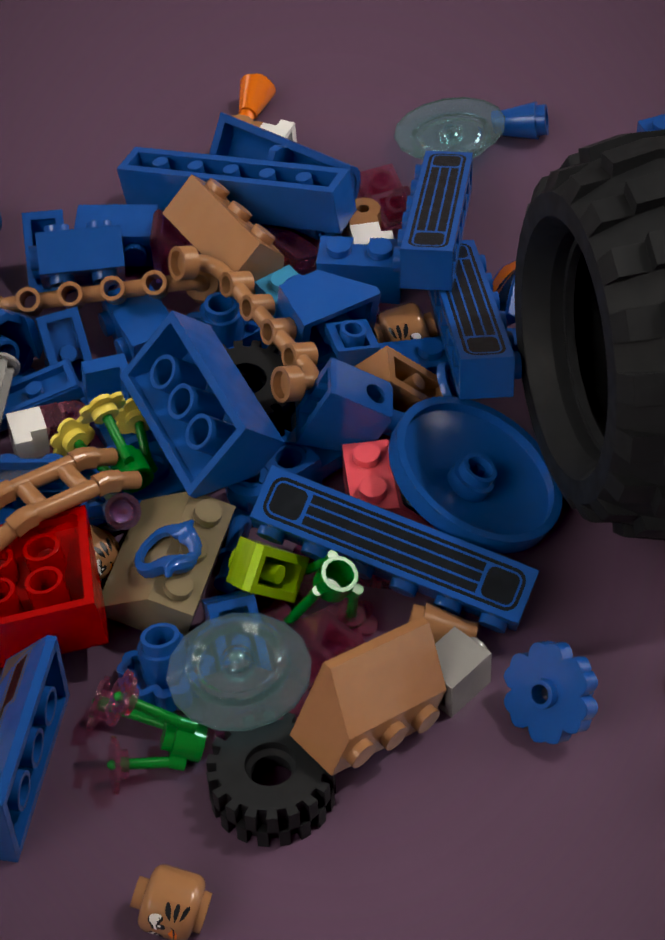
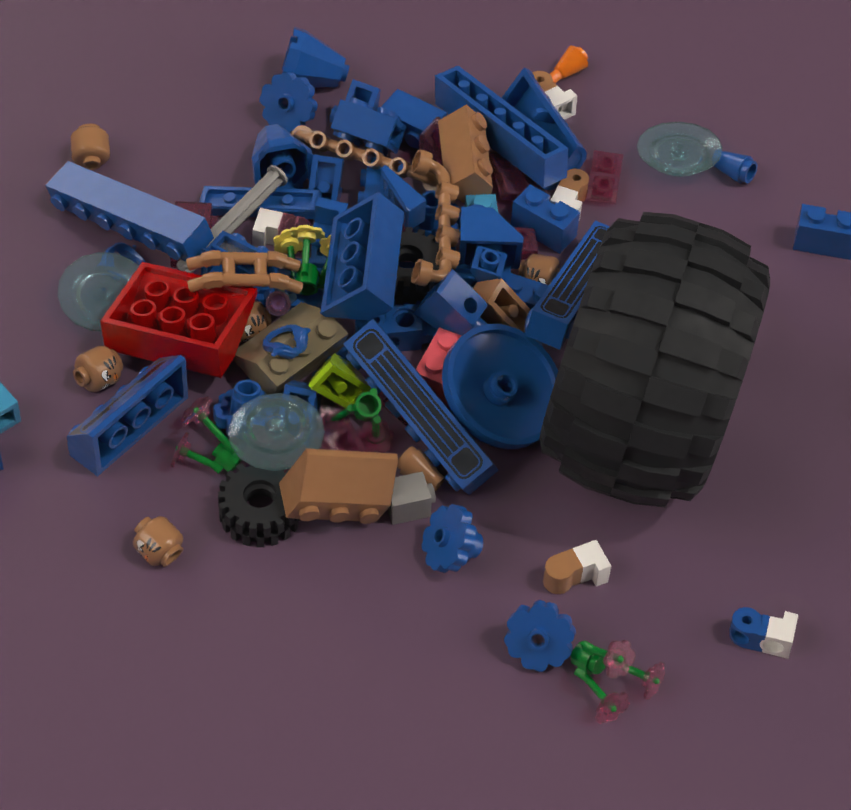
camera: 25 degrees right, 5 degrees up
(197, 308) = (403, 196): none -> blue slope
(434, 221) = (624, 197): blue brick -> none

